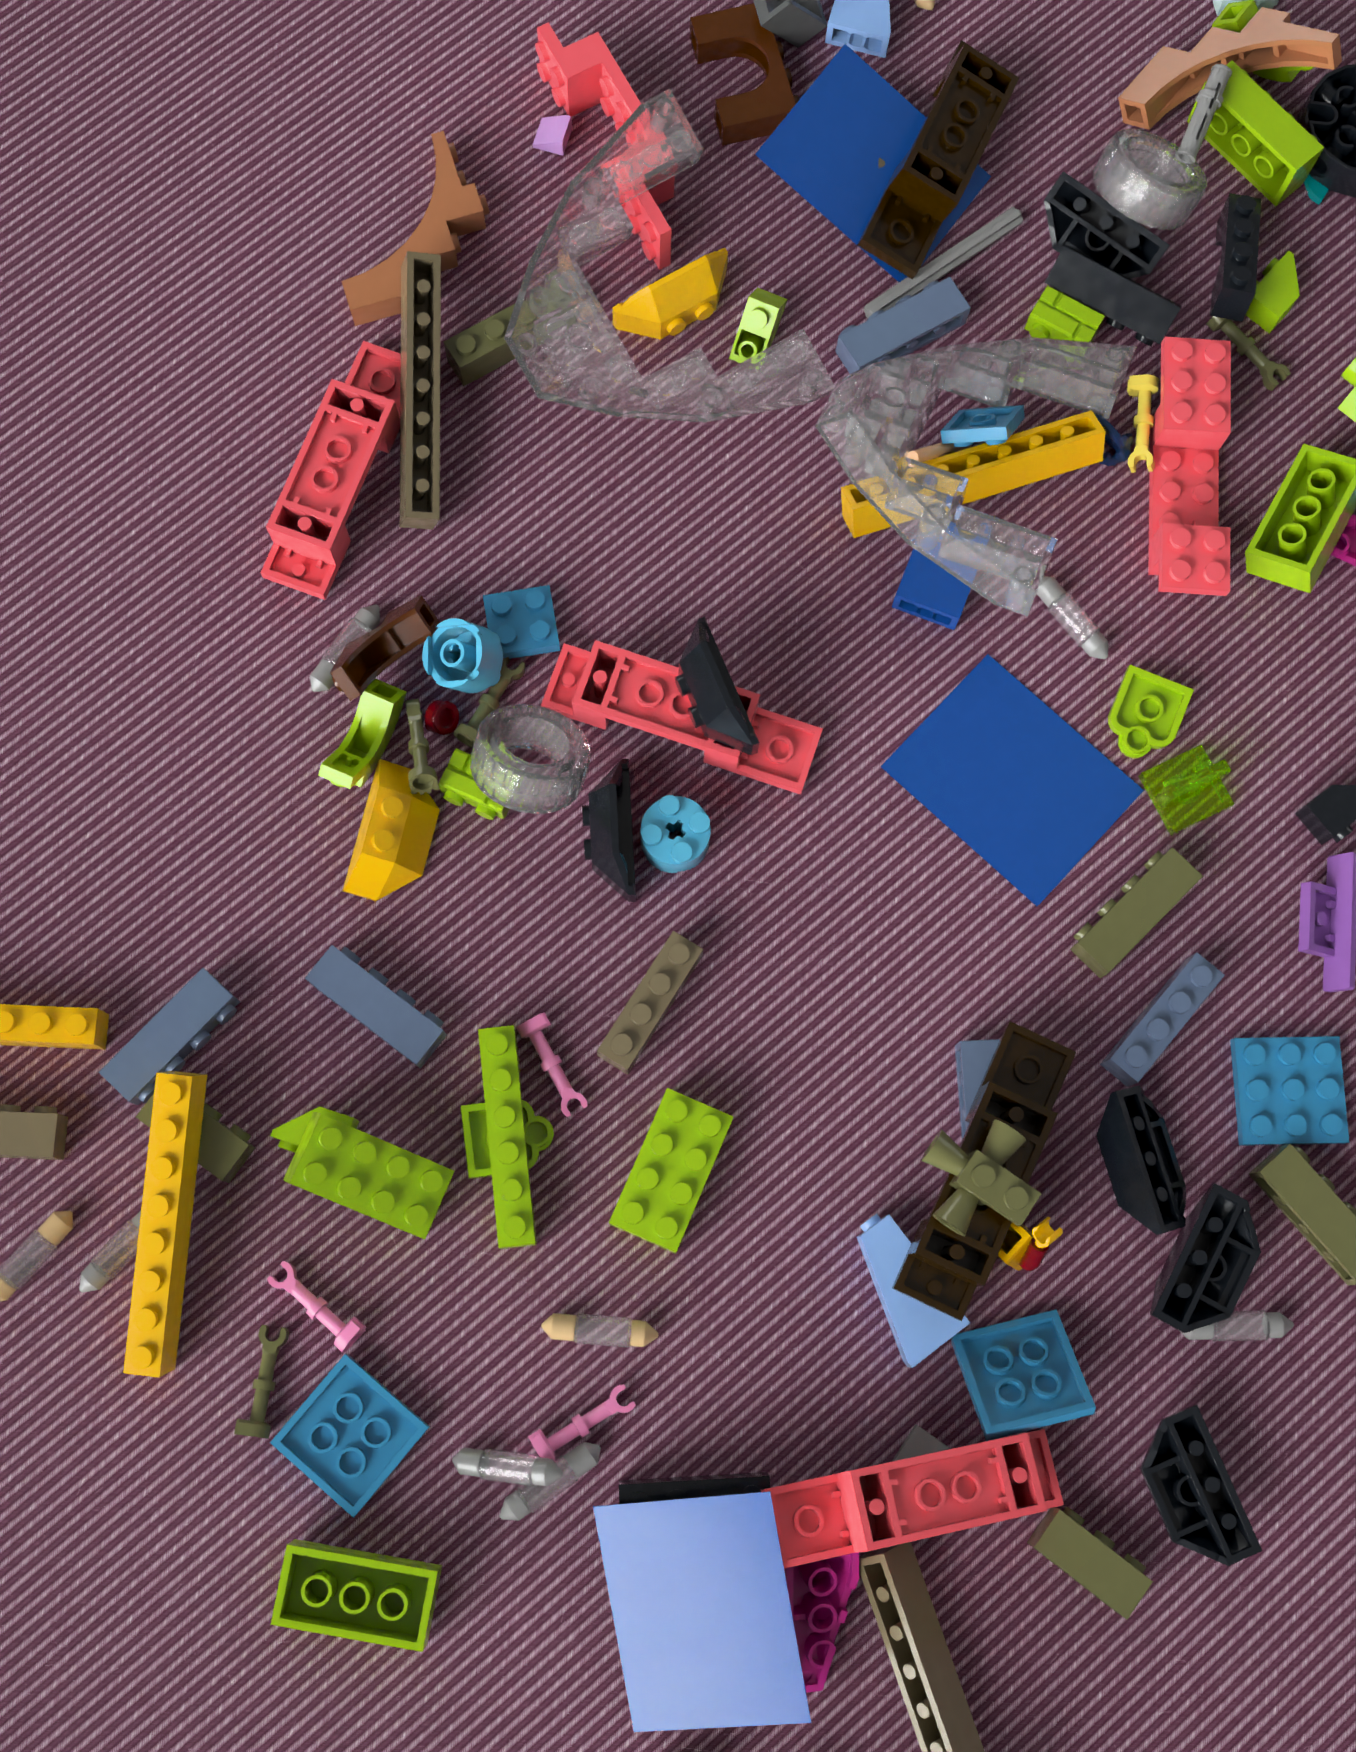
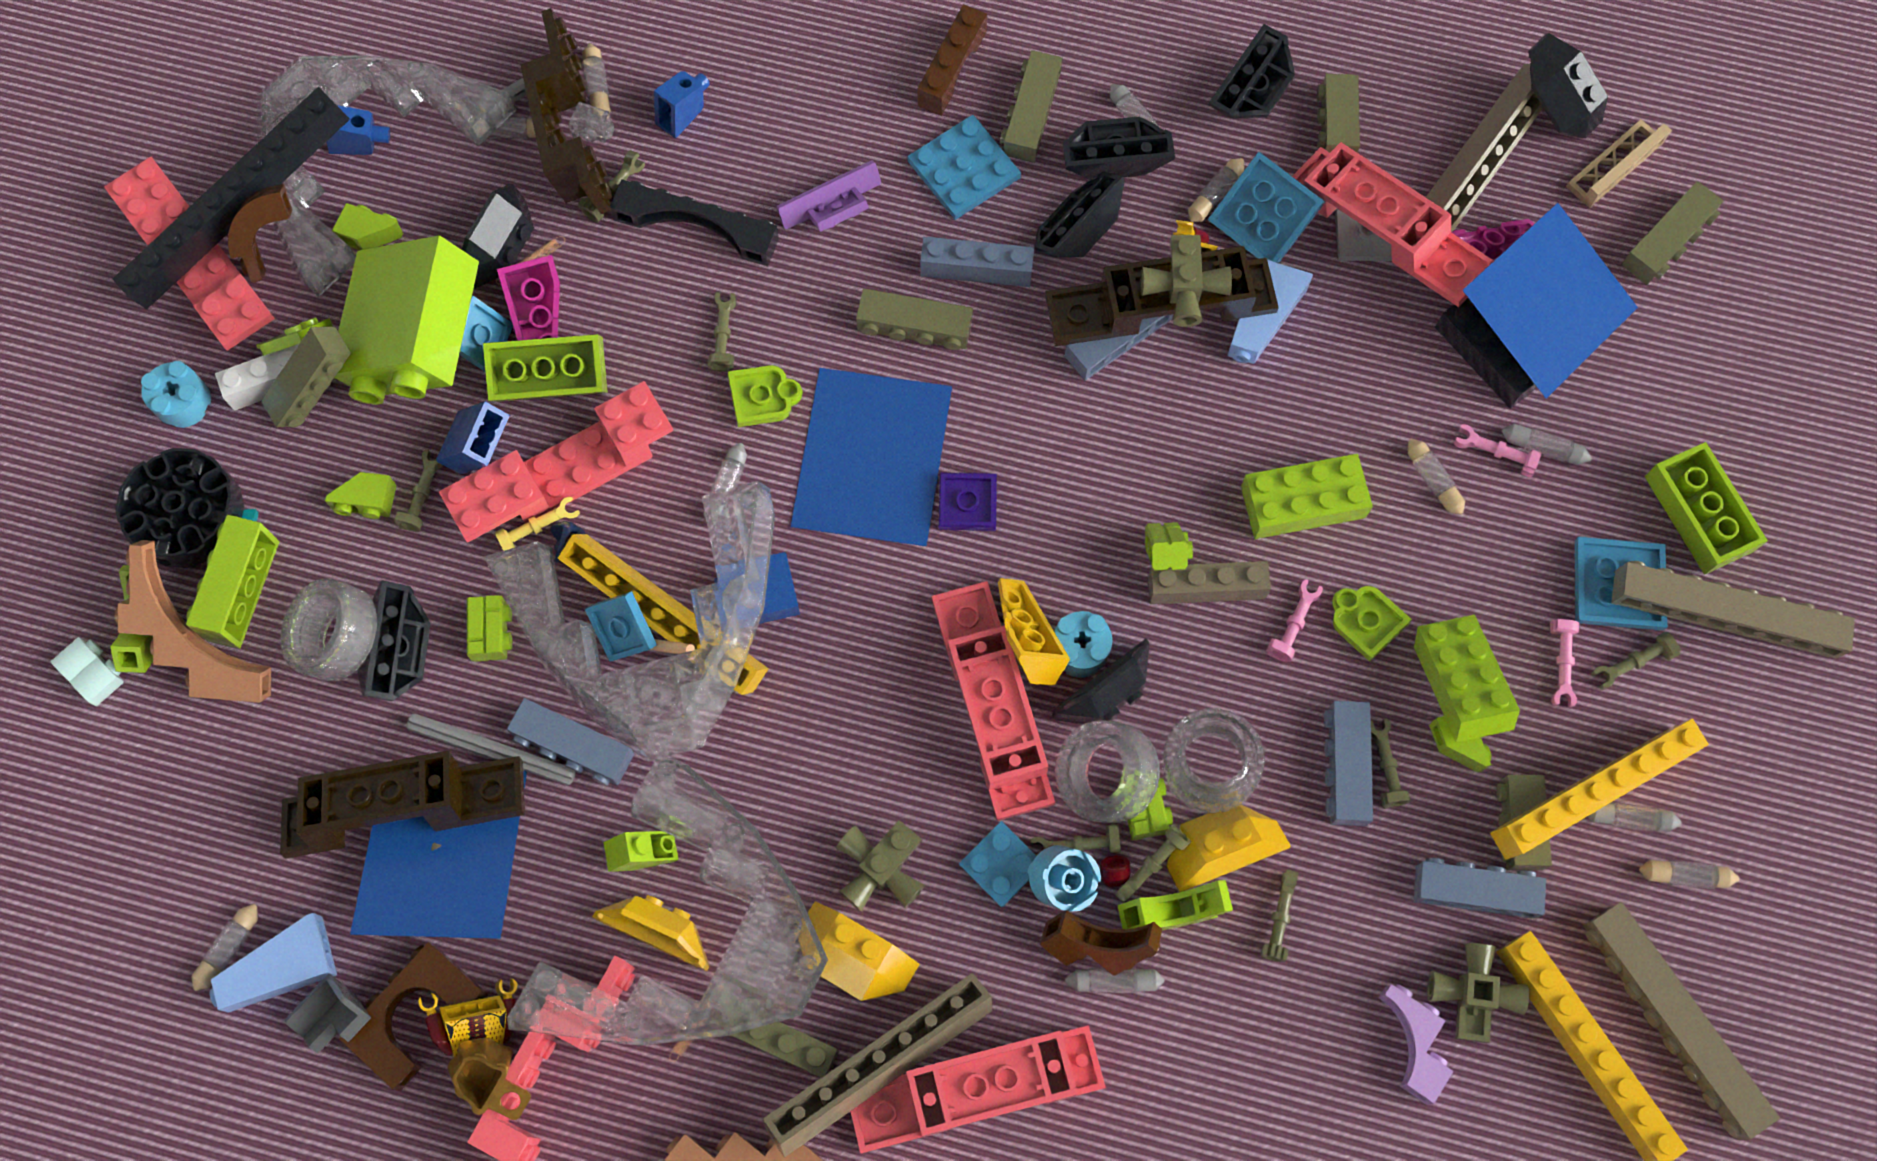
camera: 120 degrees left, 5 degrees down
(83, 958) = (1477, 994): none -> olive brick
(98, 888) = (1425, 1073): none -> lavender arch
(230, 1527) = (1733, 609): none -> dark tan brick
(263, 805) = (1274, 950): none -> olive piece
(314, 1028) = (1395, 796): none -> olive piece
(464, 915) = (1201, 793): none -> clear tyre
(506, 1137) = (1365, 613): lime arch -> none
(507, 1466) = (1561, 472): piece -> none
(534, 445) = (859, 958): none -> yellow wedge
(553, 134) = (568, 1137): lavender slope -> none
(595, 511) = (881, 865): none -> olive brick
(647, 70) = (481, 1074): none -> pearl gold piece
(701, 96) = (471, 1020): none -> torso
(713, 693) = (973, 670): black wedge -> none
(713, 981) = (1167, 546): none -> lime brick
(718, 779) = (1030, 634): none -> yellow wedge
(899, 835) = (967, 501): none -> dark purple tile
(1086, 1346) = (1216, 190): none -> piece
(1113, 295) = (443, 604): black brick -> none
(1187, 789) = (800, 339): clear neon green bracket -> none
(1208, 102) = (246, 616): light grey pin -> none
(1237, 272) = (380, 518): black arch -> none
(1243, 717) = (721, 360): none -> olive piece
(1270, 406) = (472, 438): none -> blue brick

